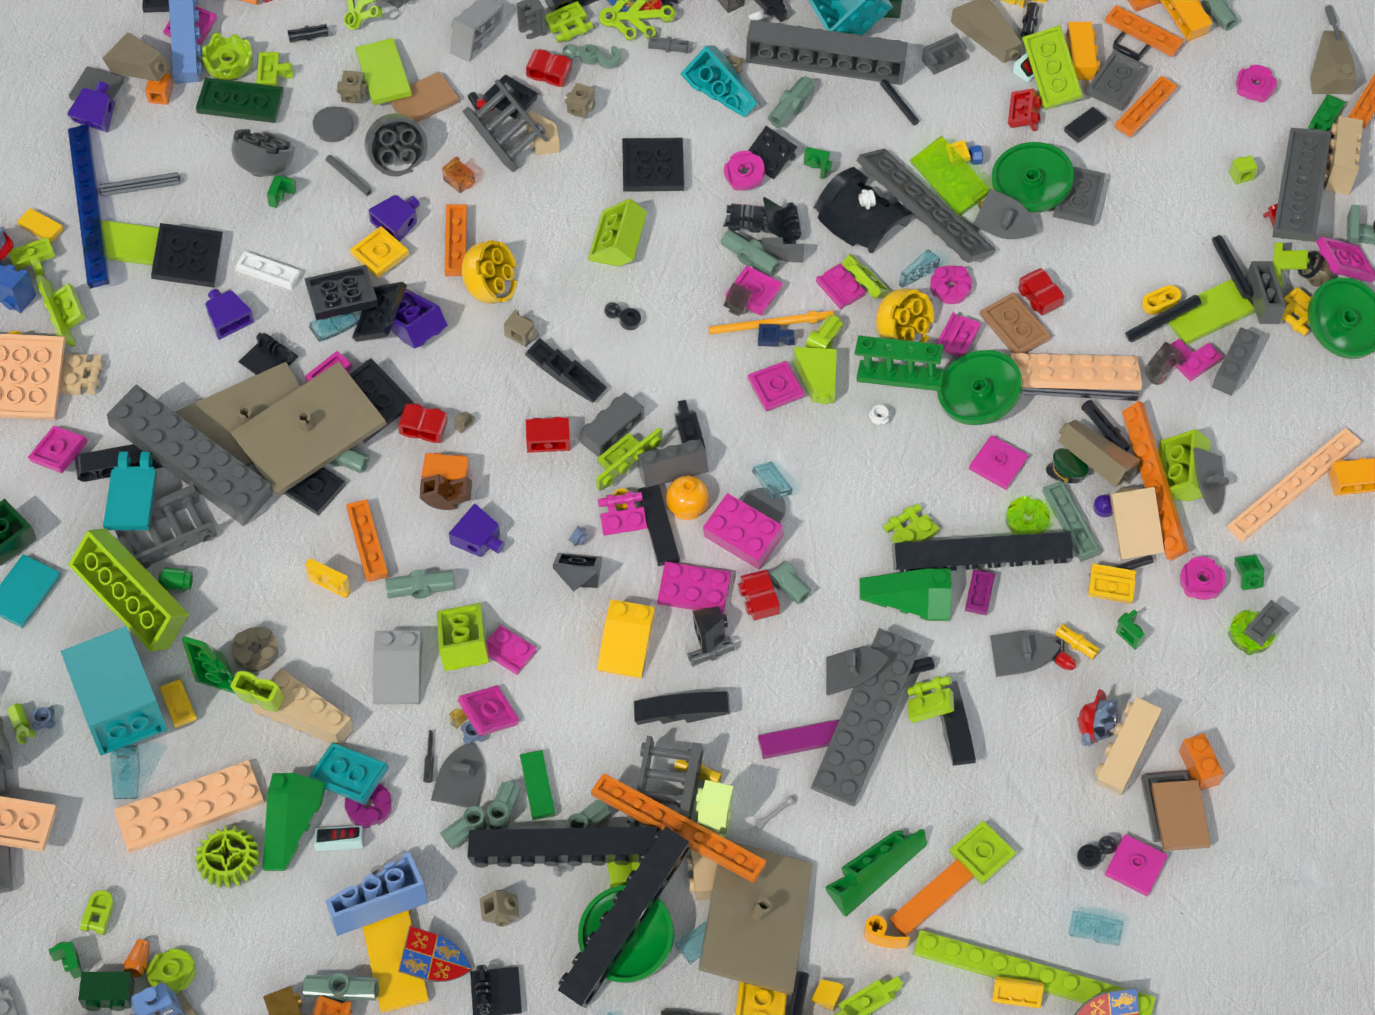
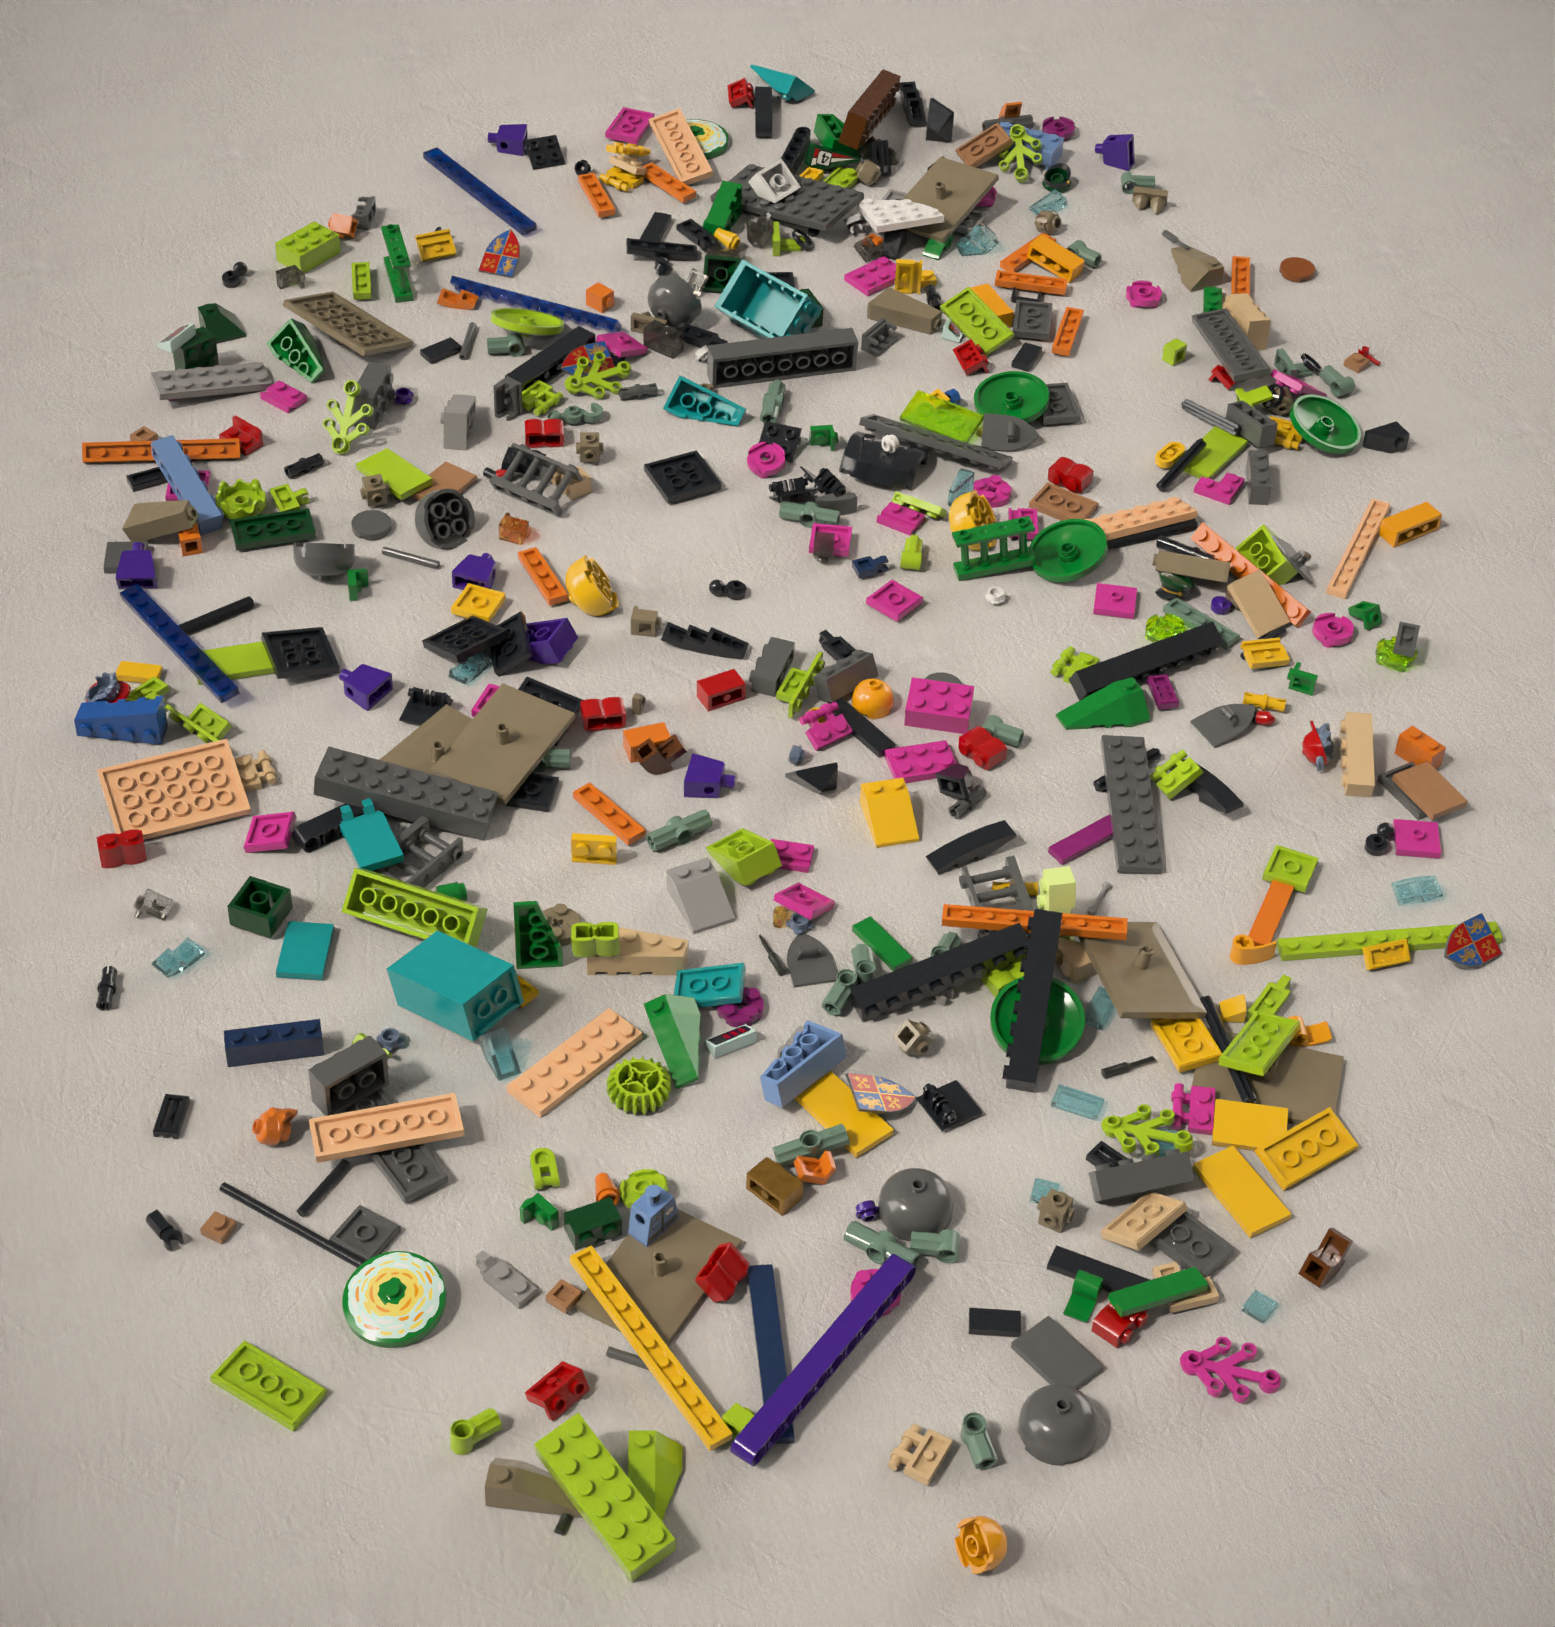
camera: 25 degrees left, 15 degrees down
(268, 270) = (381, 646): white tile -> none
(618, 234) = (685, 532): lime slope -> none
(772, 480) = (937, 665): clear light blue tile -> none
(810, 317) = (890, 545): light orange bar -> none
(817, 372) = (925, 579): lime slope -> none
(852, 668) = (1098, 771): dark grey shield -> none
(874, 868) = (1209, 909): green wedge -> none
(899, 102) = (863, 381): black bar -> none
(1163, 362) = (1202, 493): clear smoke leg -> none

